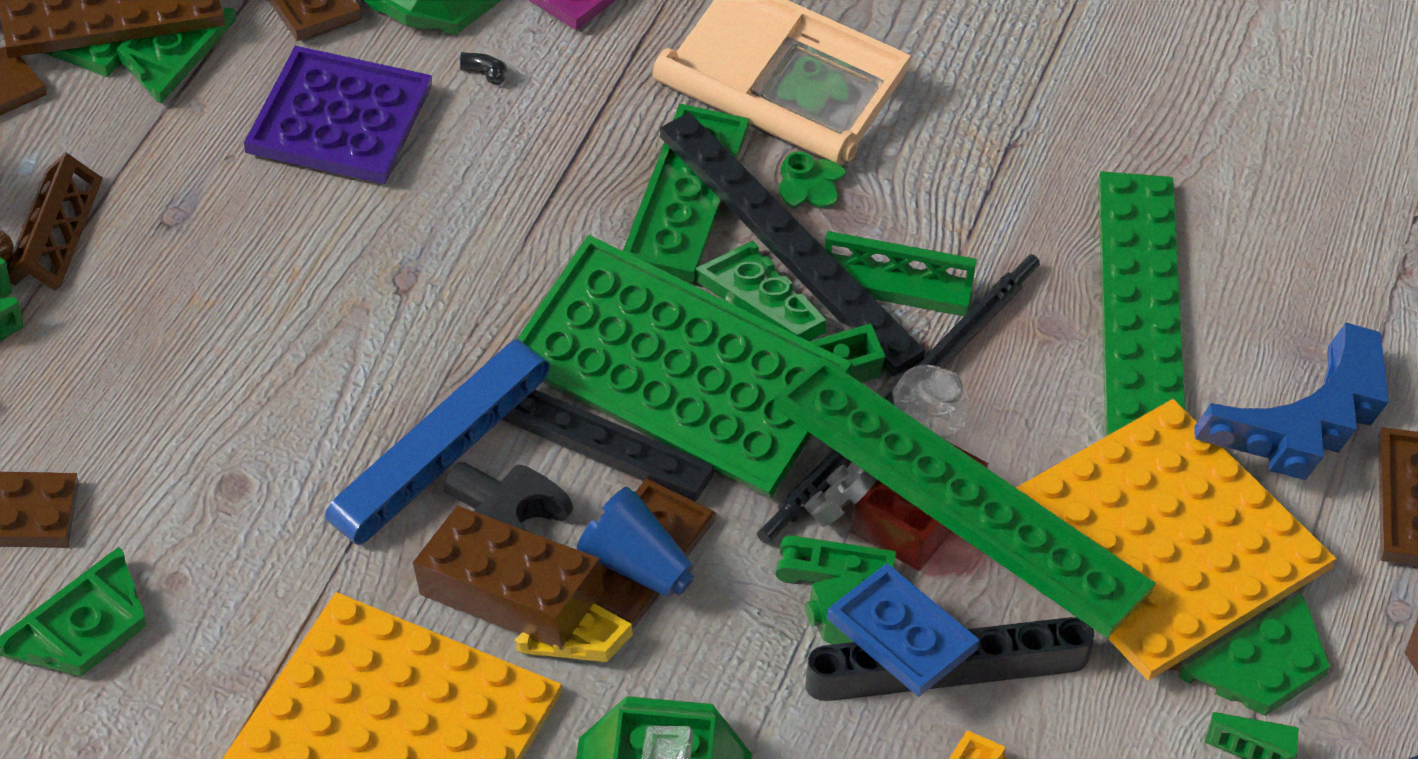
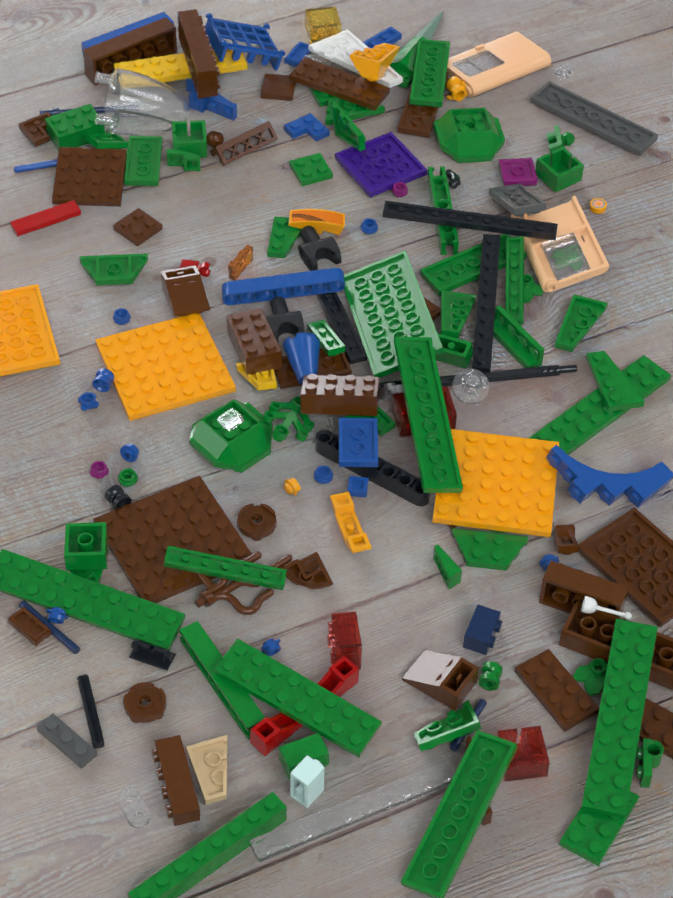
camera: 45 degrees right, 0 degrees up
(132, 119) = (309, 125): none -> blue plate
(199, 695) = (121, 316): none -> blue plate
(225, 198) = (310, 169): none -> green plate
(226, 522) = (202, 268): none -> red plate
(227, 85) = (346, 129): none -> green wing
(279, 570) = (184, 291): none -> reddish brown slope
(306, 461) = (240, 263): none -> clear orange plate
(318, 347) = (282, 238): none -> green wing
(356, 281) = (319, 219): none -> slope
(408, 332) = (317, 248): none -> black connector
(421, 138) = (400, 189): none -> magenta plate
(445, 235) = (369, 226): none -> blue plate
(536, 130) = (441, 198): none -> green piece
(604, 478) = (328, 339): none -> green plate
(614, 118) = (470, 220): none -> black plate
(641, 35) = (517, 199): none -> dark grey plate
(706, 640) = (281, 431): none -> green plant
(776, 567) = (340, 395): none -> reddish brown brick
(783, 170) = (515, 278): none -> green tile
(886, 733) = (323, 474): none -> blue plate
(945, 174) = (578, 321): none -> green wing
(964, 709) = (358, 486): none -> blue plate
(1128, 249) = (612, 384): none -> green wing
(1358, 558) = (565, 539): none -> reddish brown bracket
(1377, 611) = (544, 563): none -> blue plate

